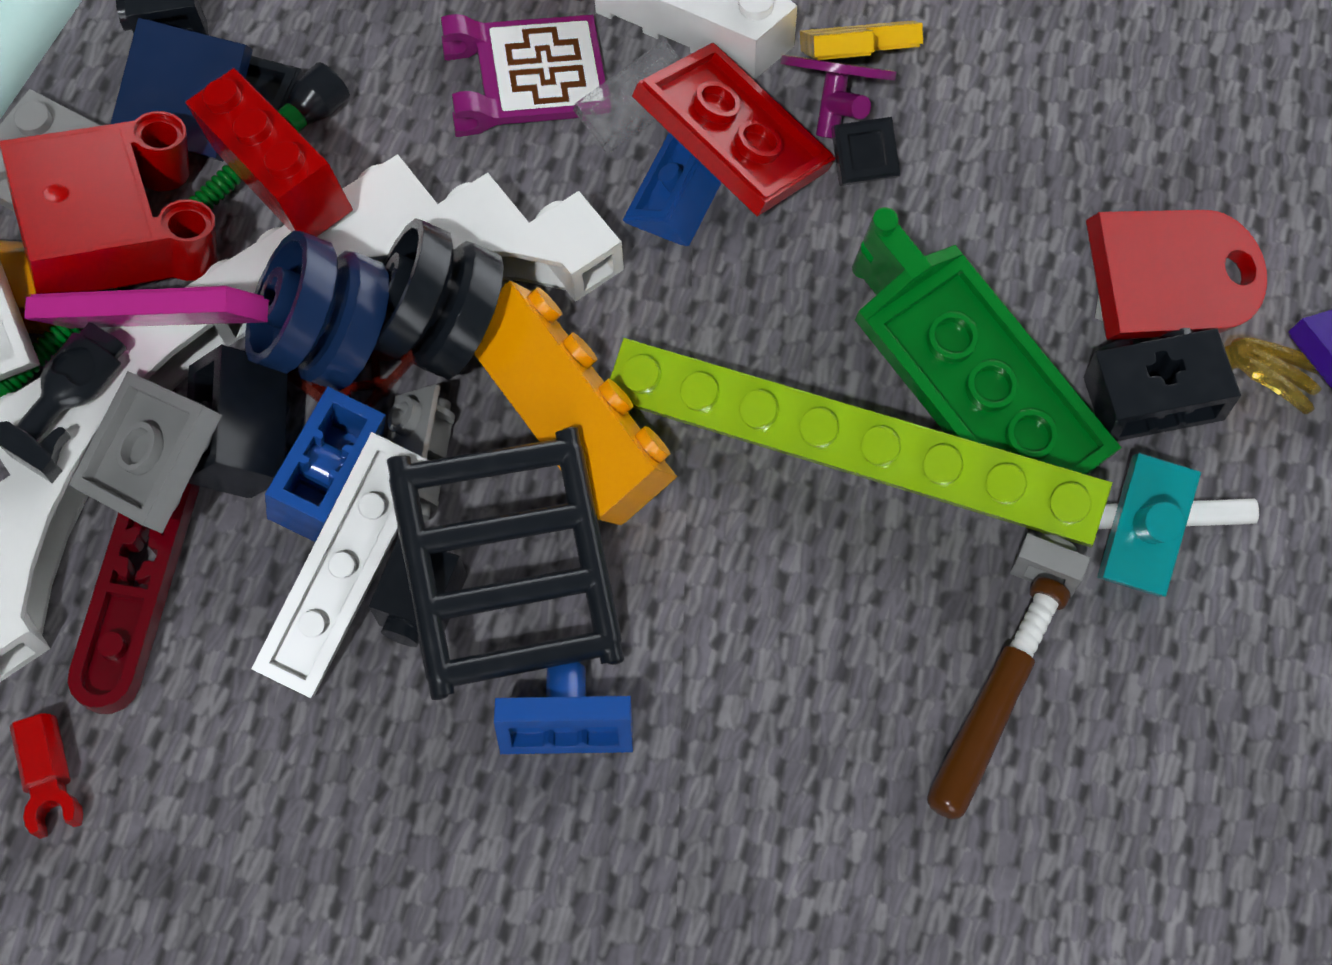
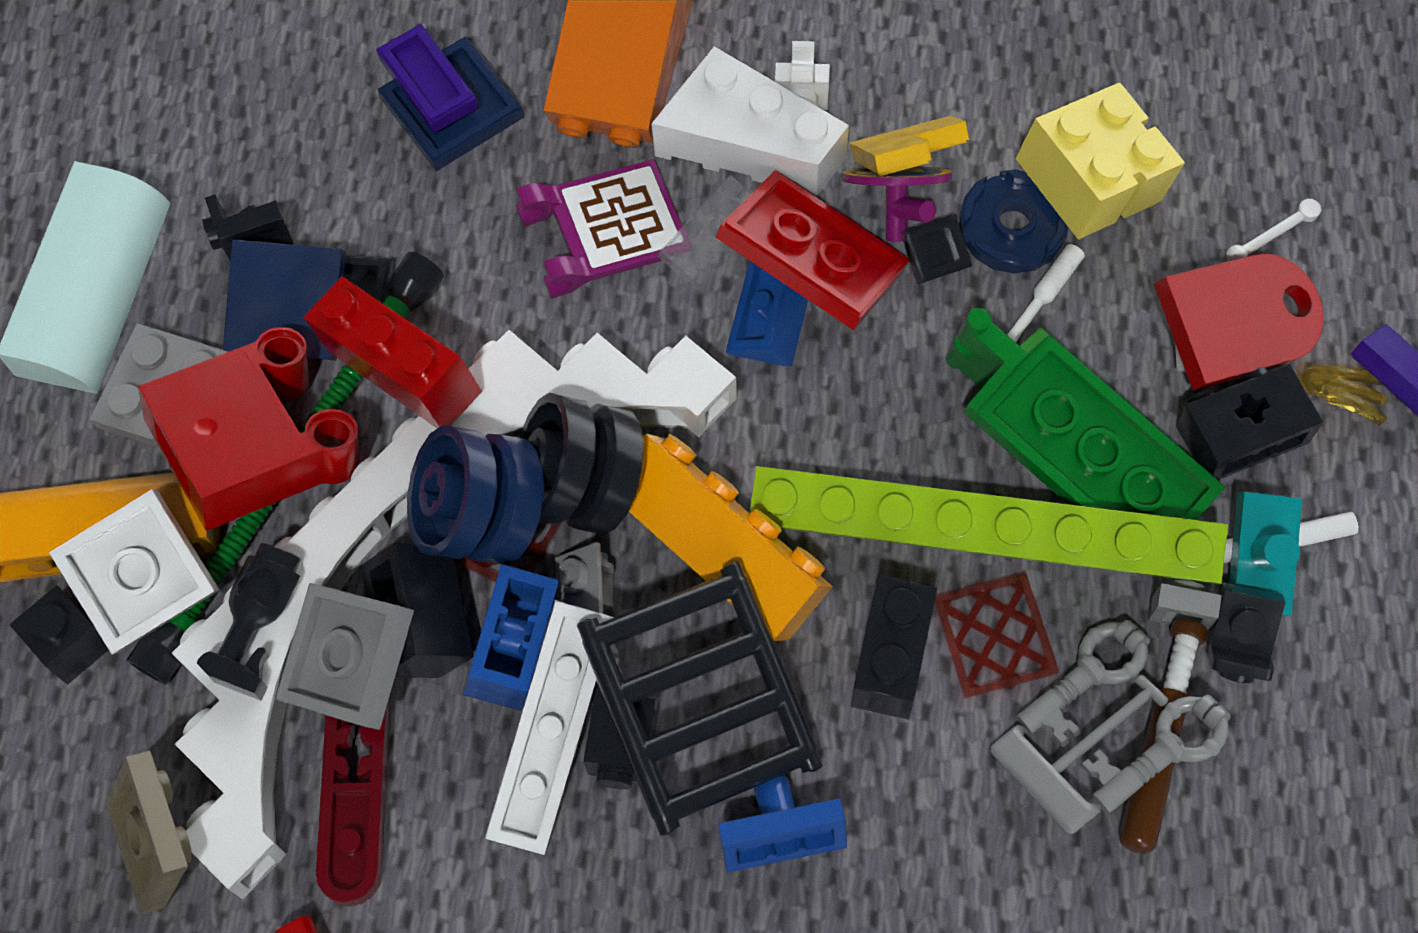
camera: 10 degrees left, 0 degrees up
(148, 307) = (318, 521): dark pink tile -> none
(726, 549) = (893, 647): none -> black brick
(836, 512) = (1009, 678): none -> clear red window
(858, 719) = (1045, 781): none -> light grey piece
(949, 166) = (1006, 248): none -> dark blue tile
(979, 208) = (1049, 286): none -> white piece
(1056, 86) = (1098, 160): none -> light yellow piece
(1109, 604) = (1245, 633): none -> black bracket
(1272, 180) = (1307, 211): none -> white hinge

